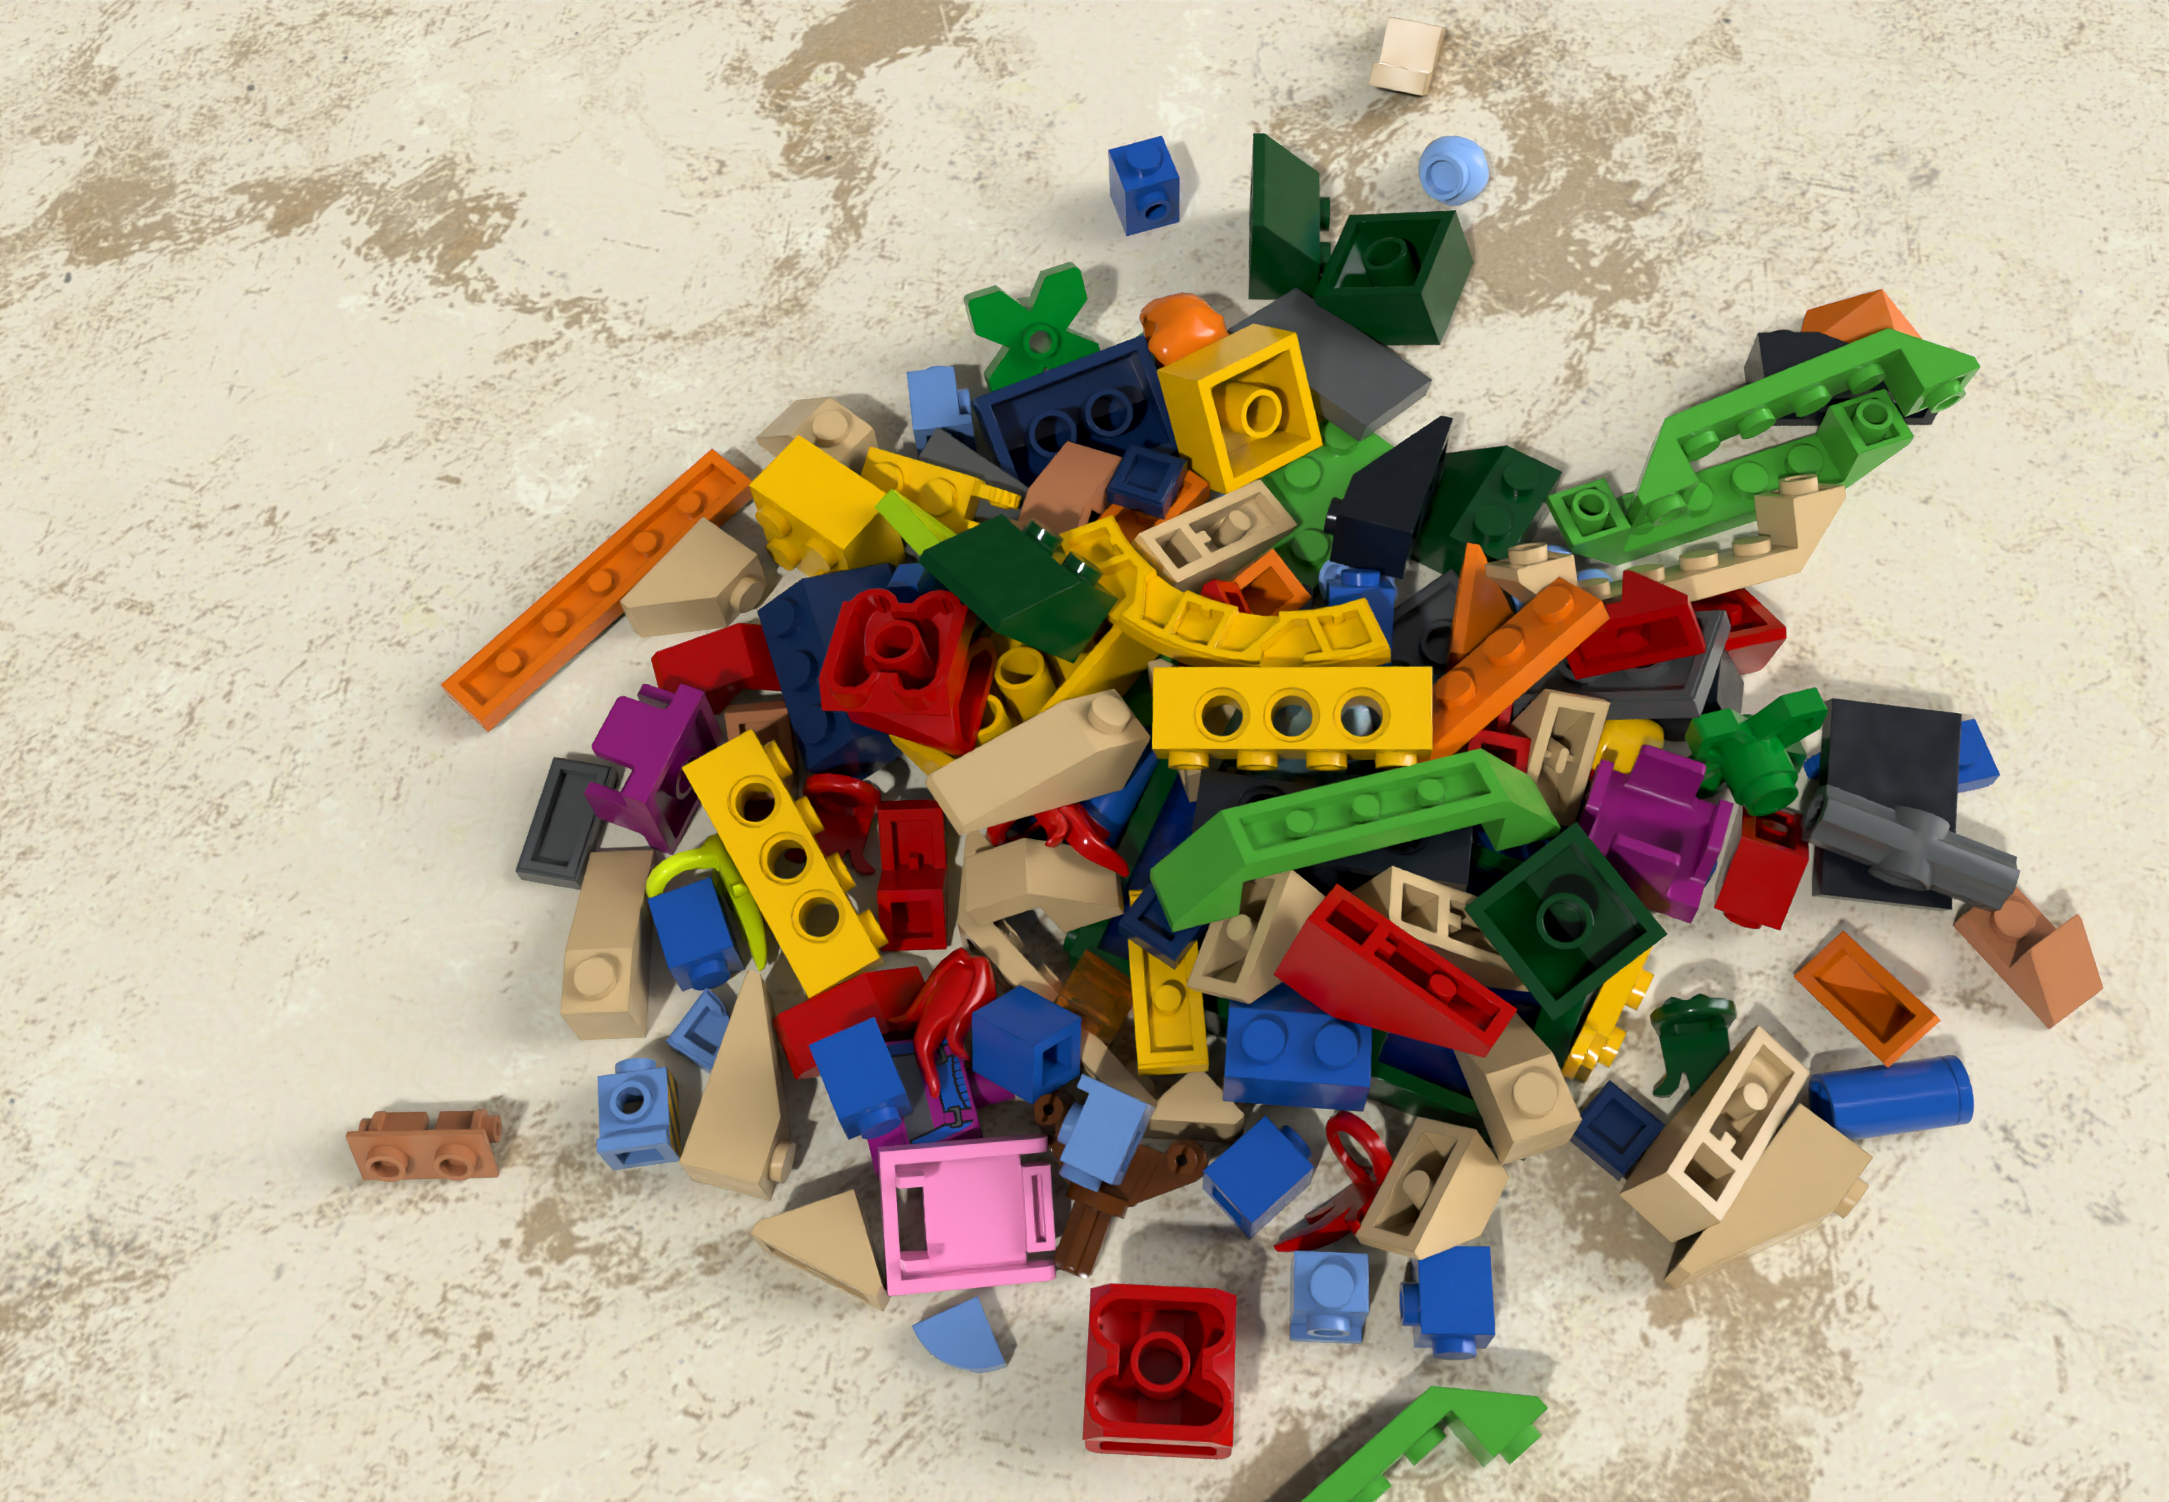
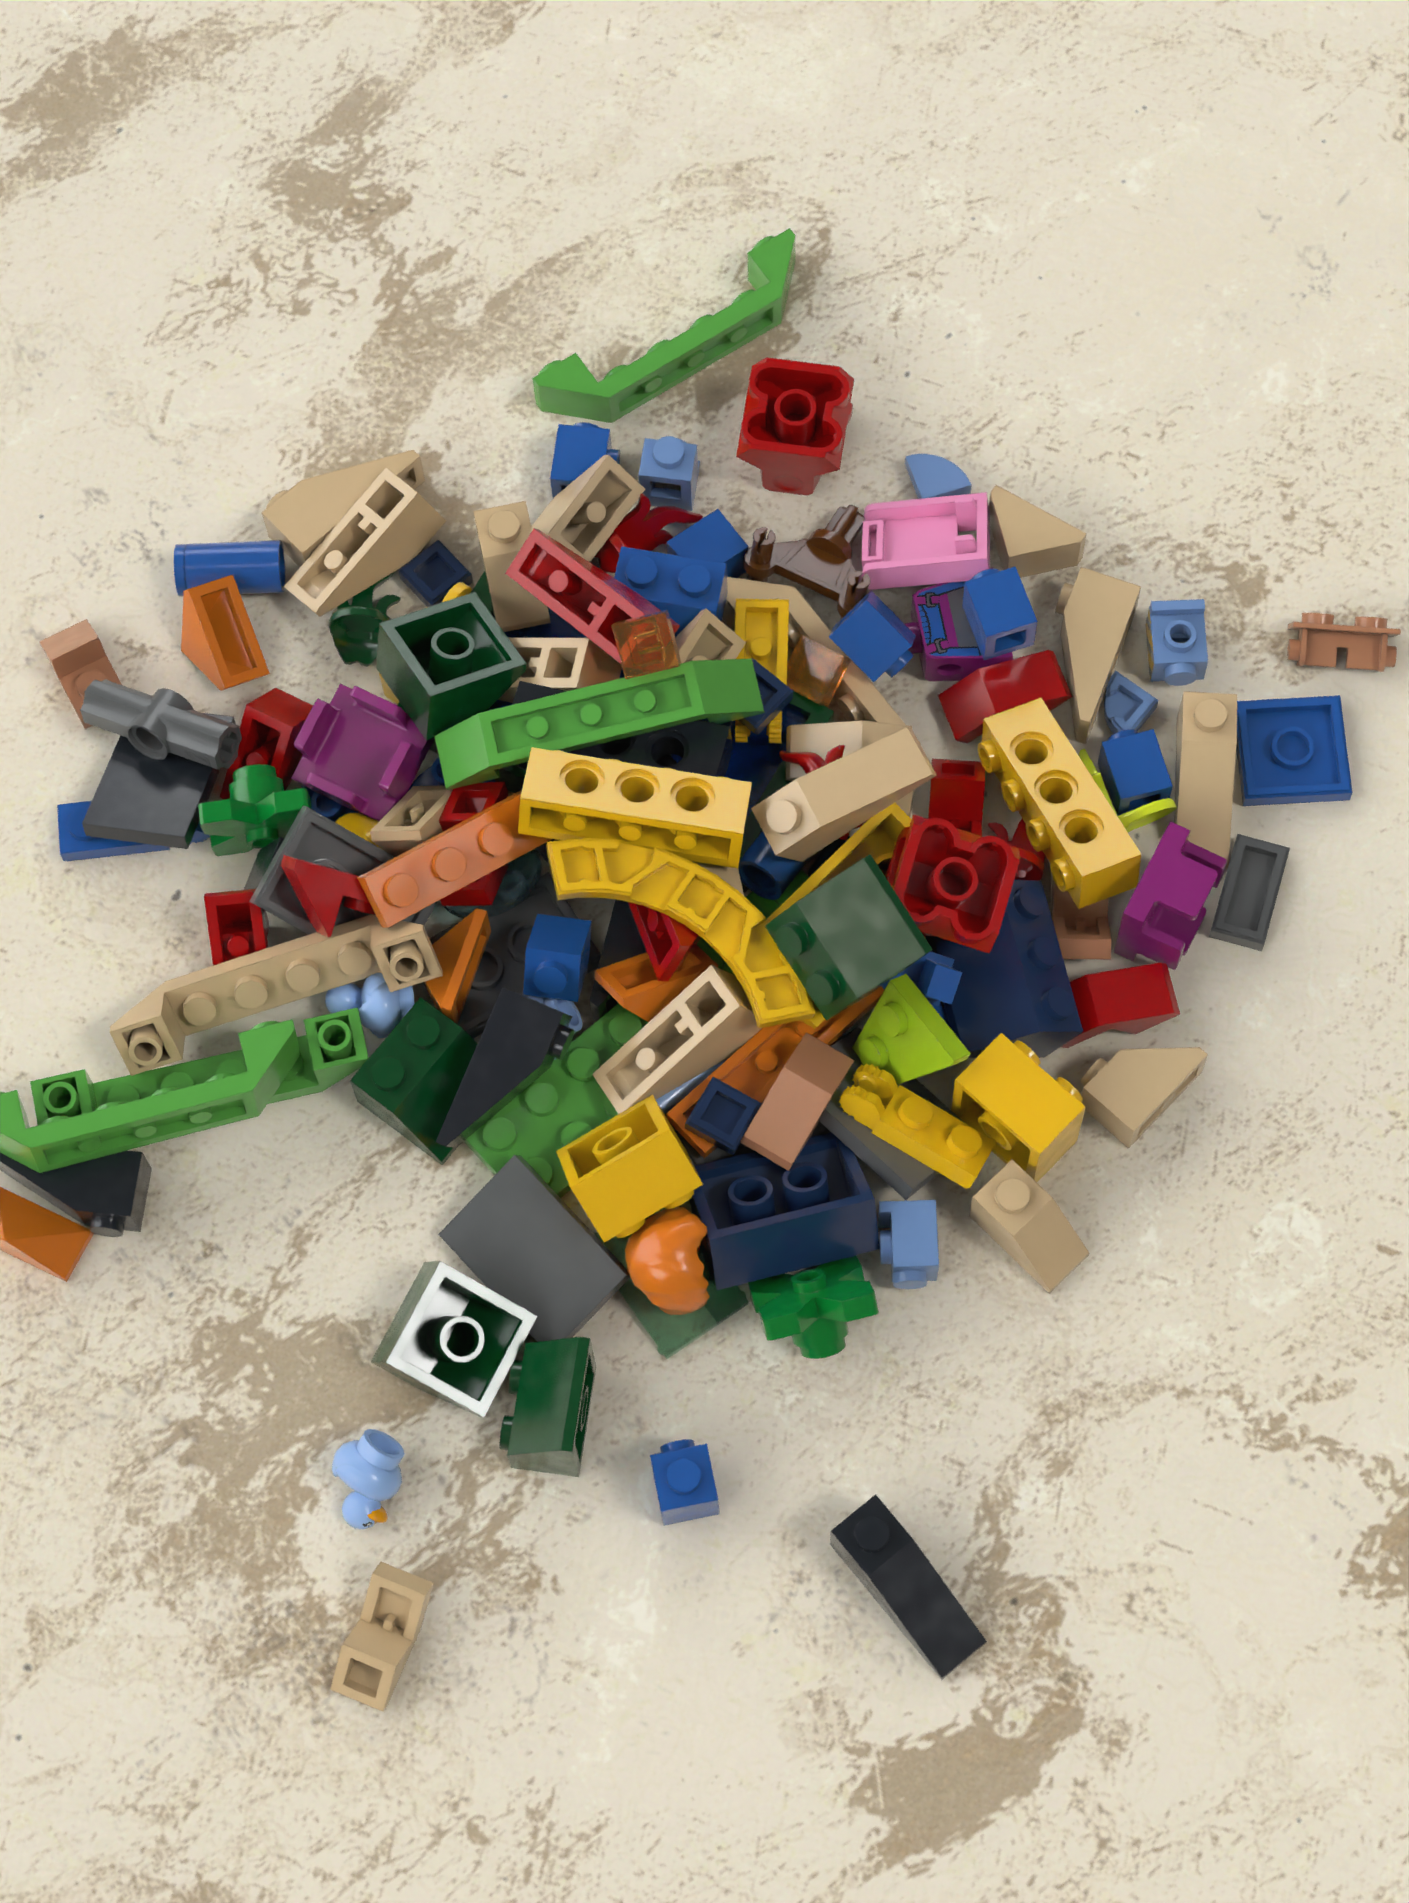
camera: 175 degrees left, 5 degrees up
(501, 1001) = (1292, 751): none -> blue tile
(590, 594) = (1227, 1101): orange plate -> none
(935, 144) = (906, 1586): none -> black slope
(945, 1009) = (928, 677): red piece -> none
(1102, 1135) = (818, 564): medium blue brick -> none
(1308, 867) = (646, 644): none -> clear orange tile

